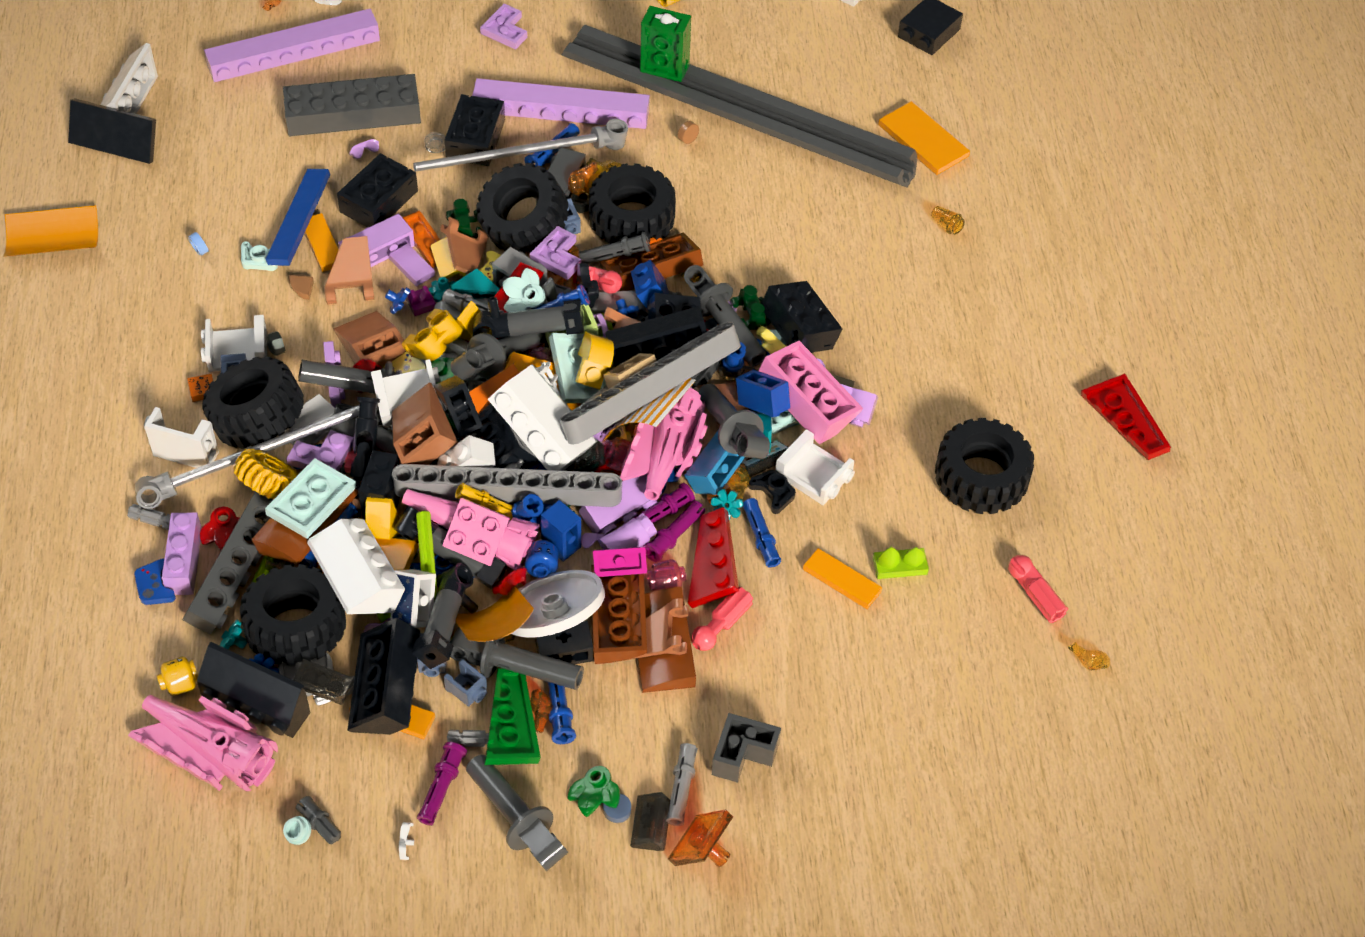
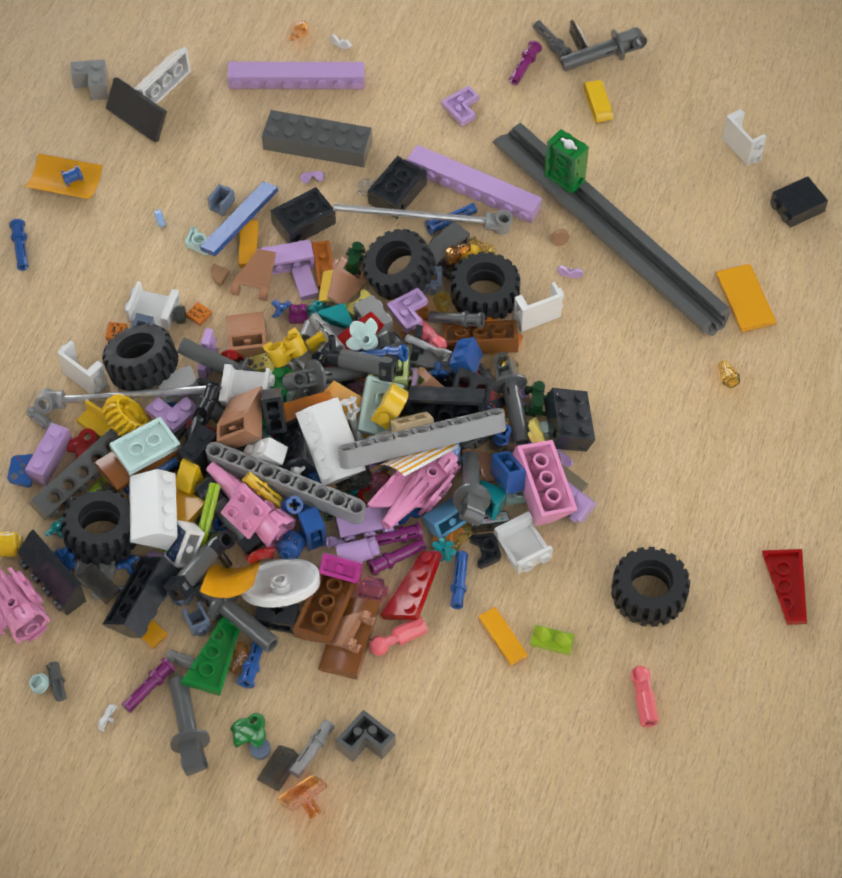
camera: 25 degrees right, 5 degrees up
(24, 316) = (19, 237): none -> blue pin
(35, 109) = (91, 75): none -> light grey brick
(61, 227) = (72, 175): none -> blue bush
(225, 492) = (93, 419): none -> yellow panel
(266, 195) = (220, 193): none -> sand blue window
(297, 337) = (198, 314): none -> orange tile
(345, 648) = (127, 563): none -> blue plant
(590, 235) = (442, 301): none -> clear yellow cone
(621, 288) = (440, 352): none -> light grey piece
(701, 220) = (539, 312): none -> white panel
(710, 167) = (577, 273): none -> lavender piece
(1090, 659) = (658, 766): clear yellow animal -> none

